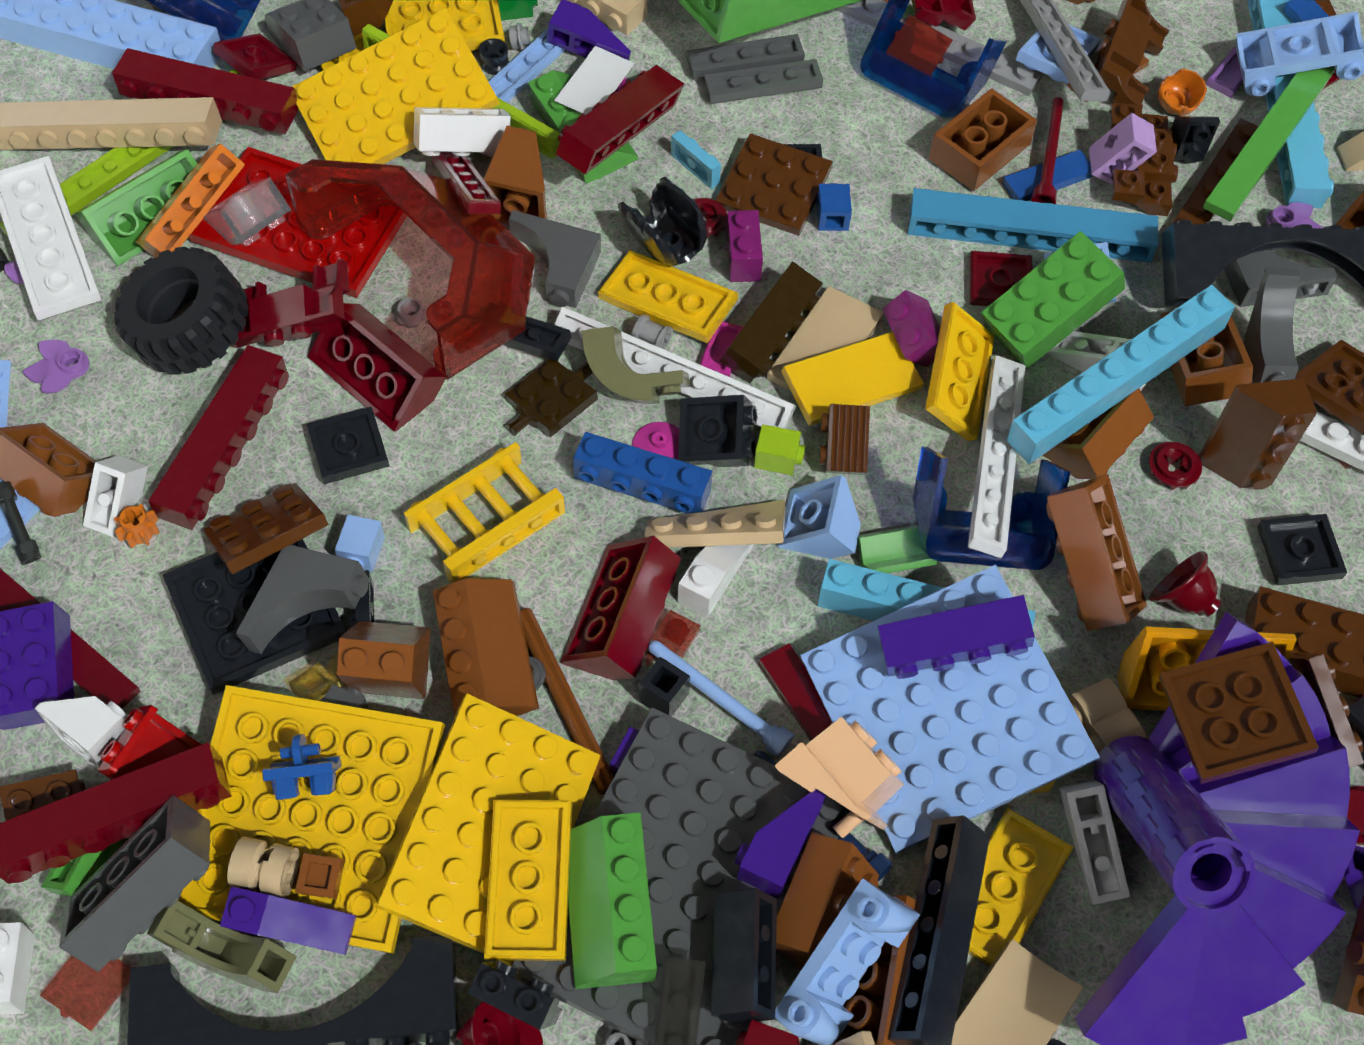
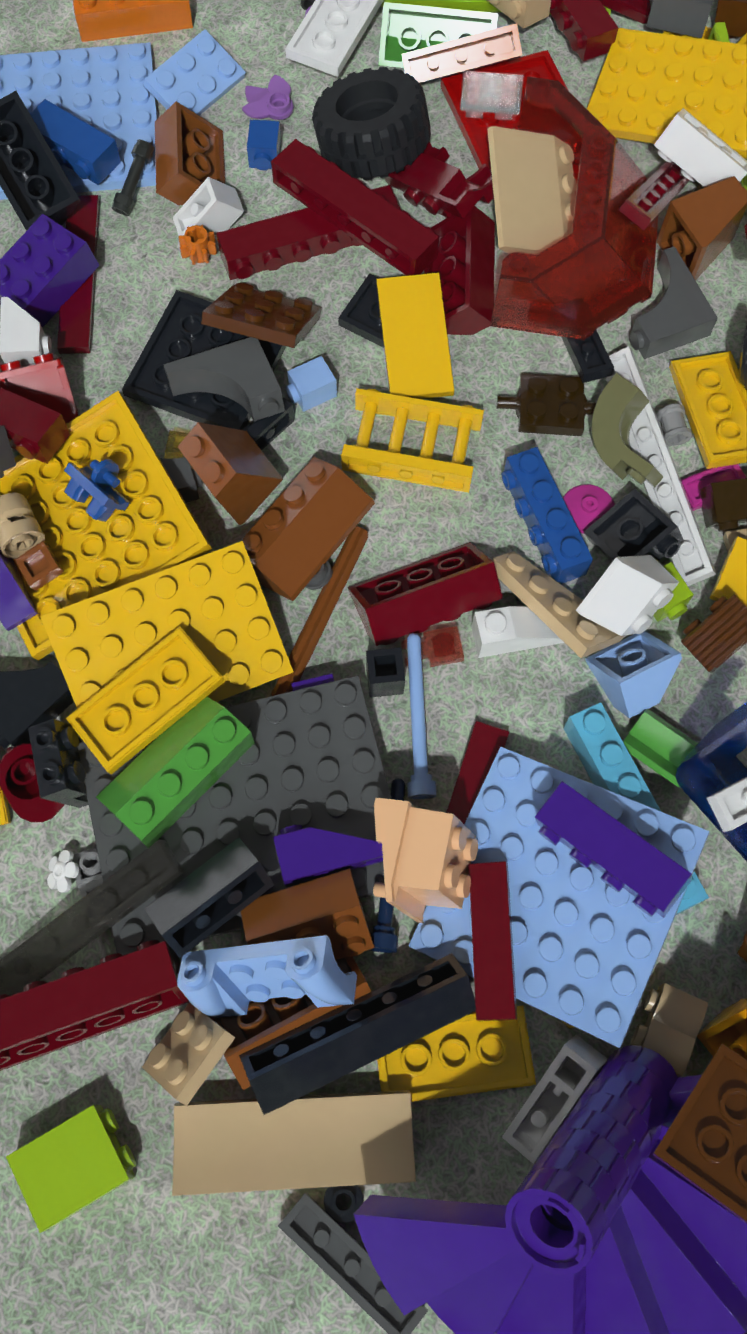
camera: 50 degrees right, 10 degrees up
(99, 402) = (263, 143): none -> blue brick
(246, 384) = (355, 209): none -> dark red brick
(381, 256) = (531, 189): none -> tan slope
(400, 437) = (415, 336): none -> yellow tile
(766, 470) = (629, 595): none -> white slope
(950, 781) = (492, 942): none -> dark red tile

